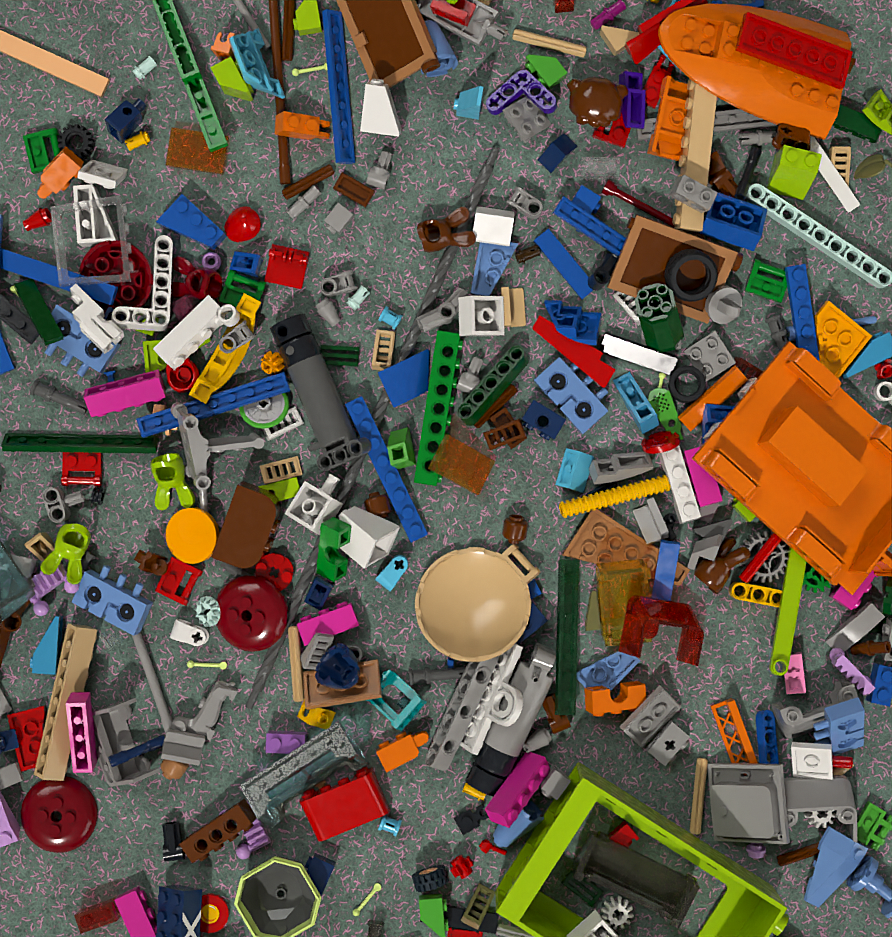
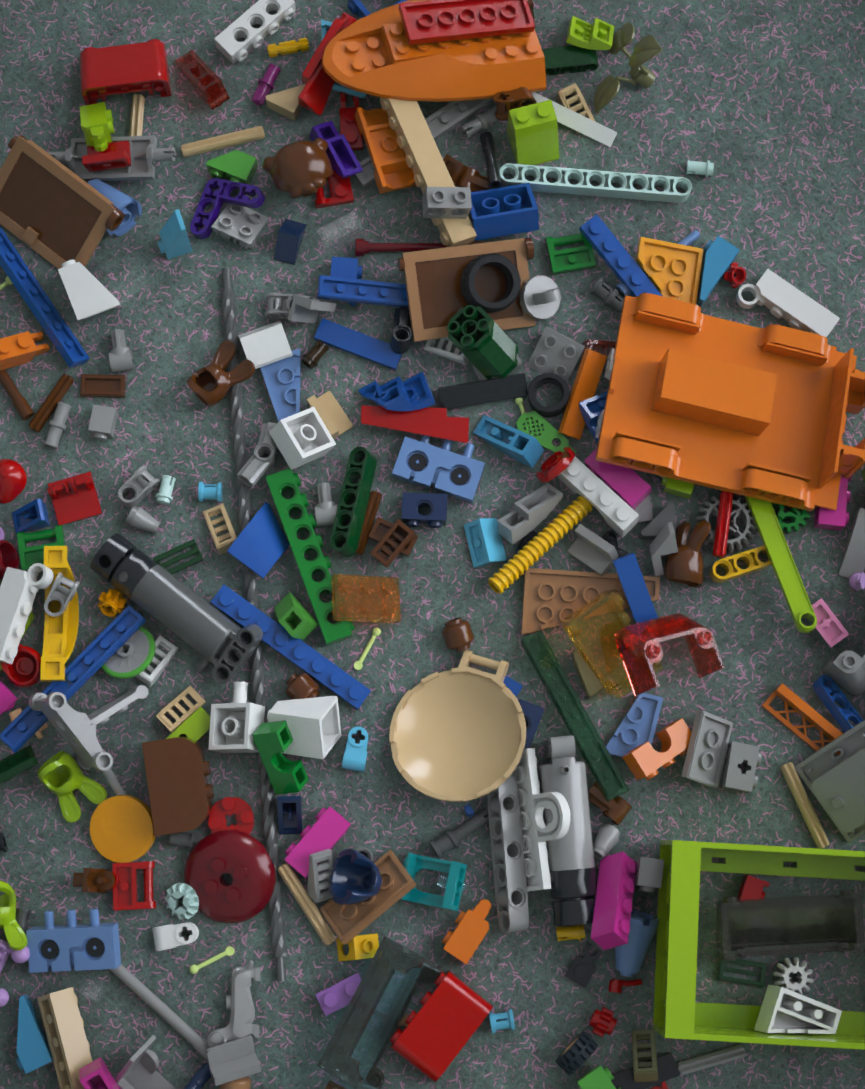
camera: 30 degrees left, 10 degrees down
(456, 492) = (358, 664): none -> yellowish green hinge
(541, 215) = (307, 308): none -> light grey panel

